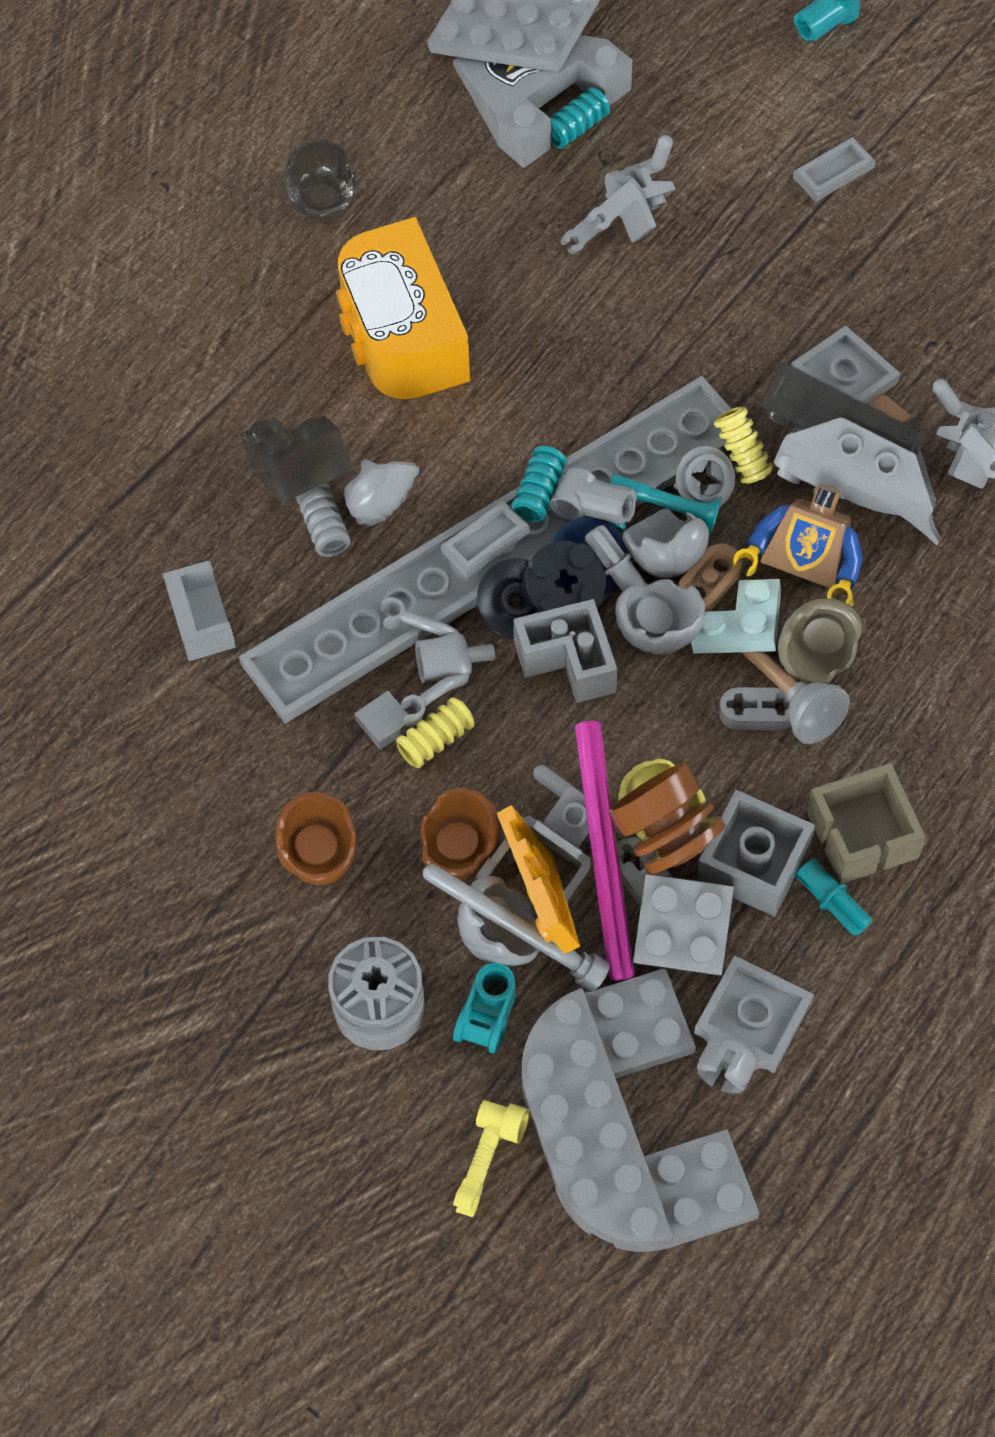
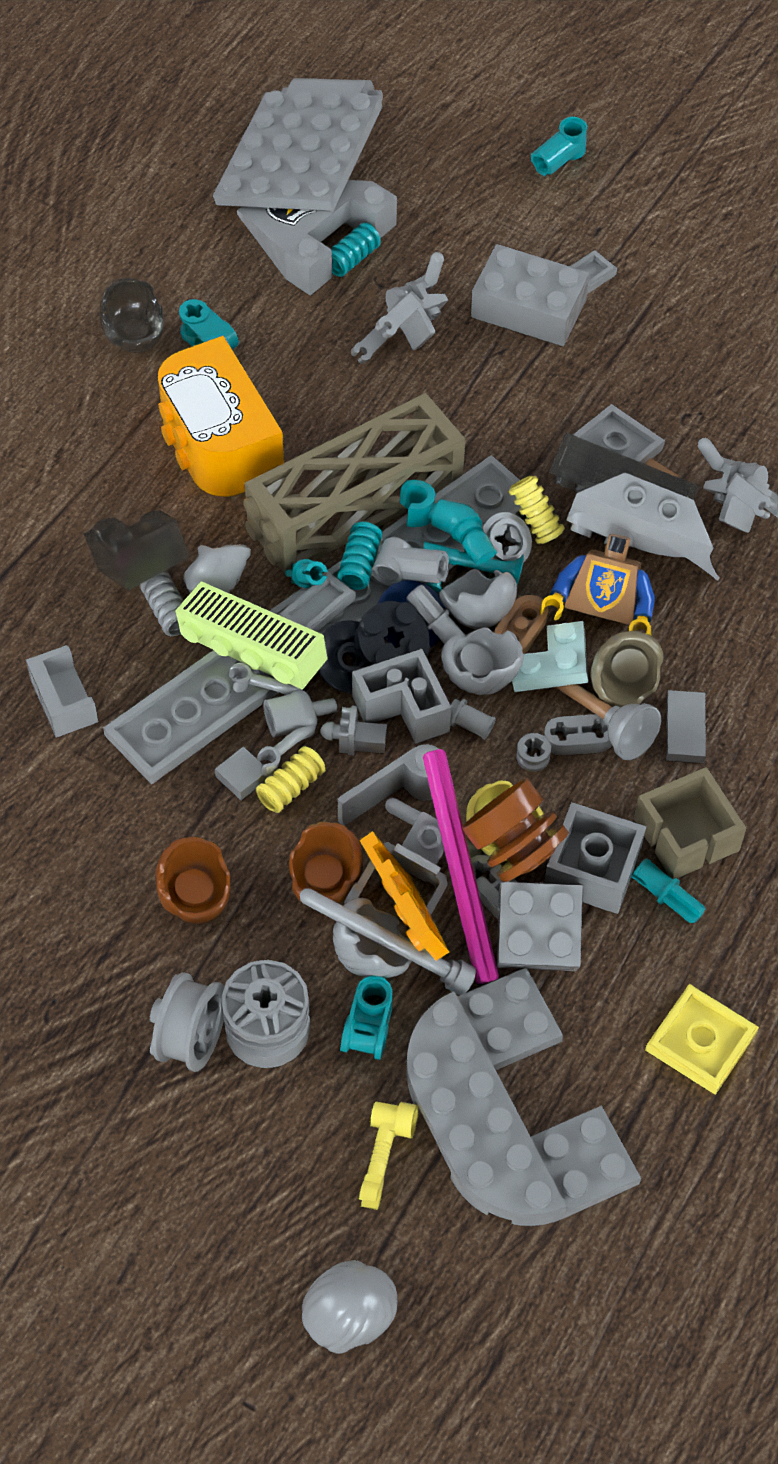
camera: 10 degrees left, 5 degrees down
(291, 994) = (187, 1022): none -> light grey wheel
(399, 200) = (203, 324): none -> teal piece
(409, 567) = (251, 635): none -> yellowish green brick
(429, 1318) = (349, 1306): none -> light grey piece
(444, 419) = (434, 447): none -> dark tan piece
(478, 500) = (307, 573): none -> teal axle
(512, 688) = (356, 735): none -> light grey piece
(555, 736) = (404, 772): none -> light grey door
(640, 680) = (471, 719): none -> light grey pin
(643, 446) = (449, 516): none -> teal piece
(705, 712) = (532, 741): none -> light grey bush
(748, 1024) = (608, 1010): light grey plate -> none
(770, 187) = (529, 294): none -> light grey brick
(848, 1065) = (702, 1039): none -> light yellow tile
(879, 710) = (685, 726): none -> light grey tile

